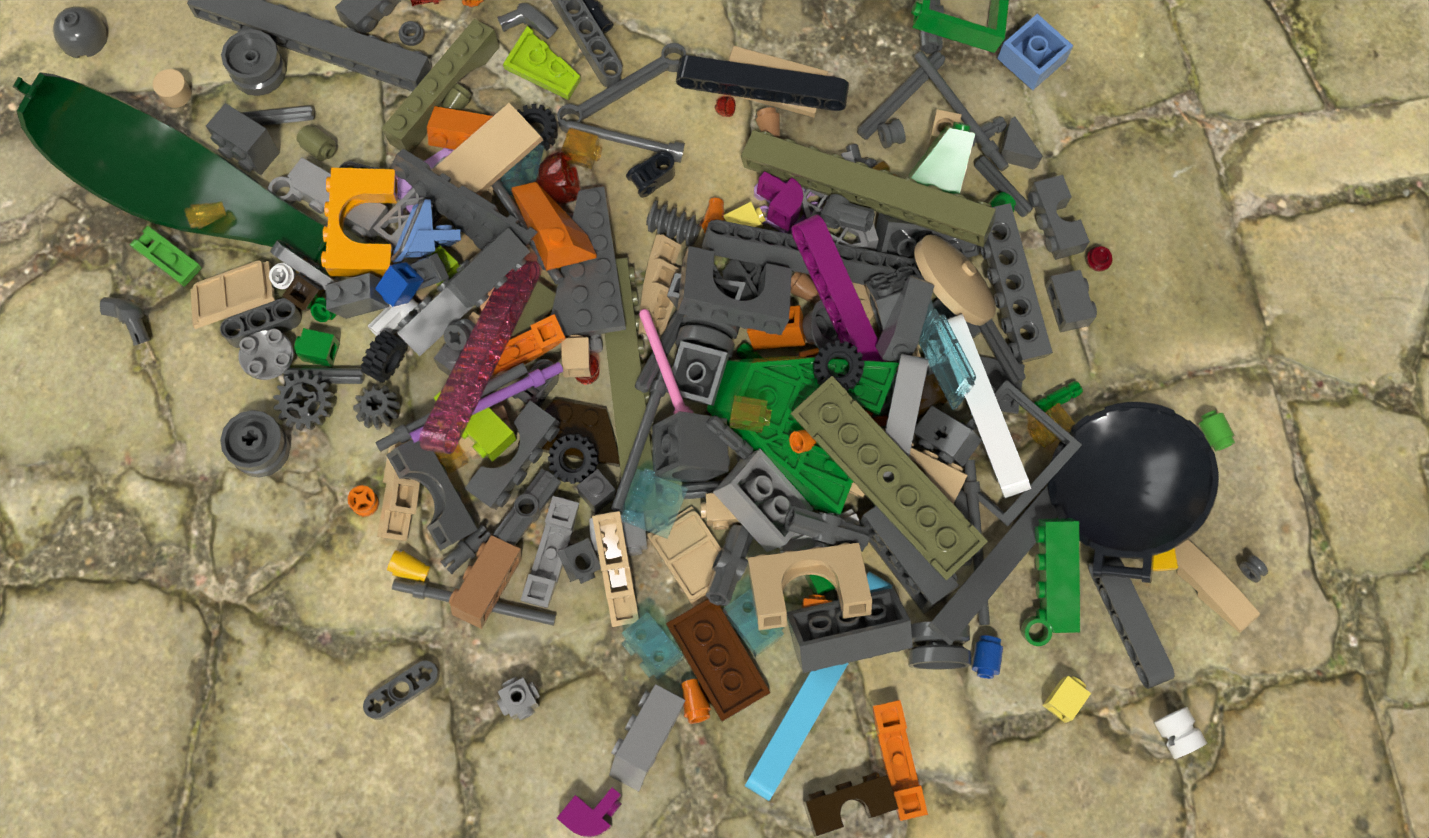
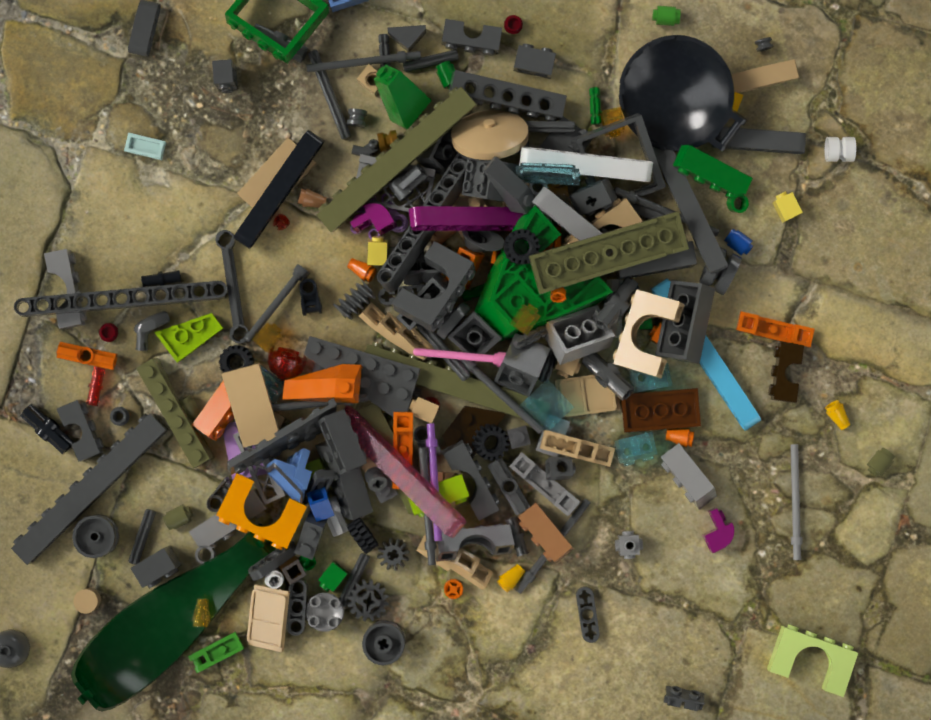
camera: 55 degrees left, 15 degrees up
(127, 313) = (249, 692): dark grey arm -> none

